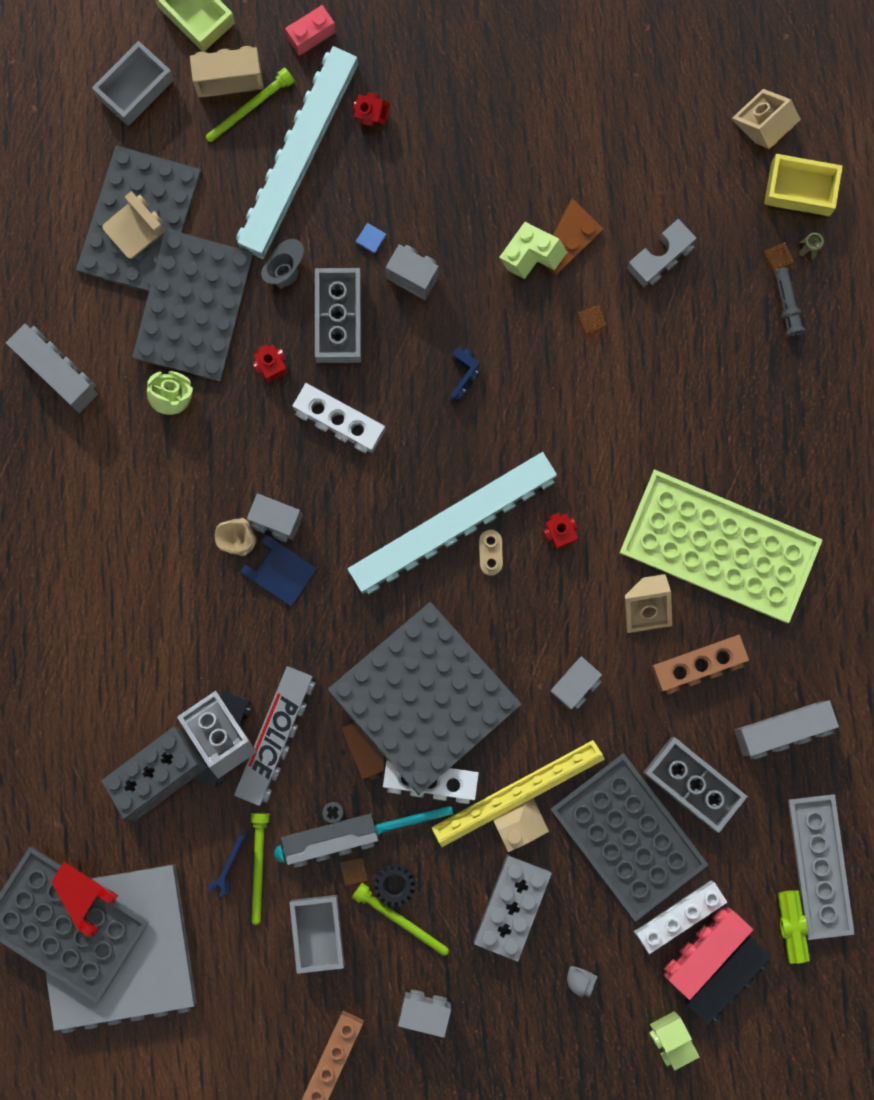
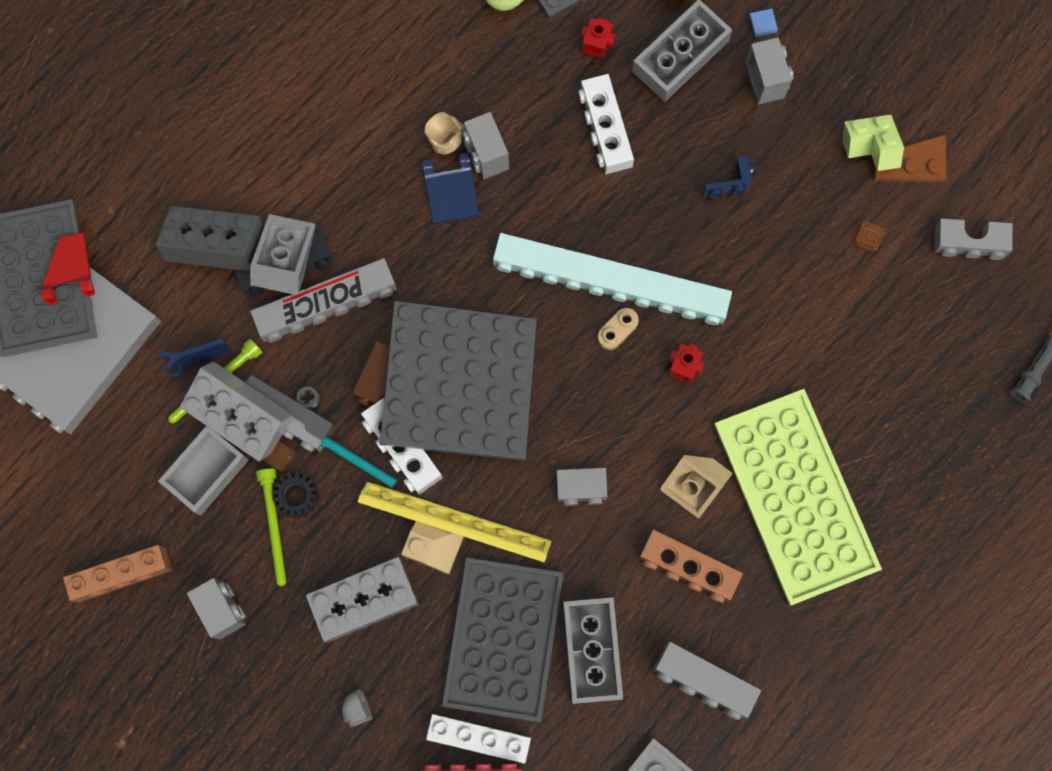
camera: 50 degrees right, 5 degrees down
(299, 872) = (236, 411): none -> light grey brick

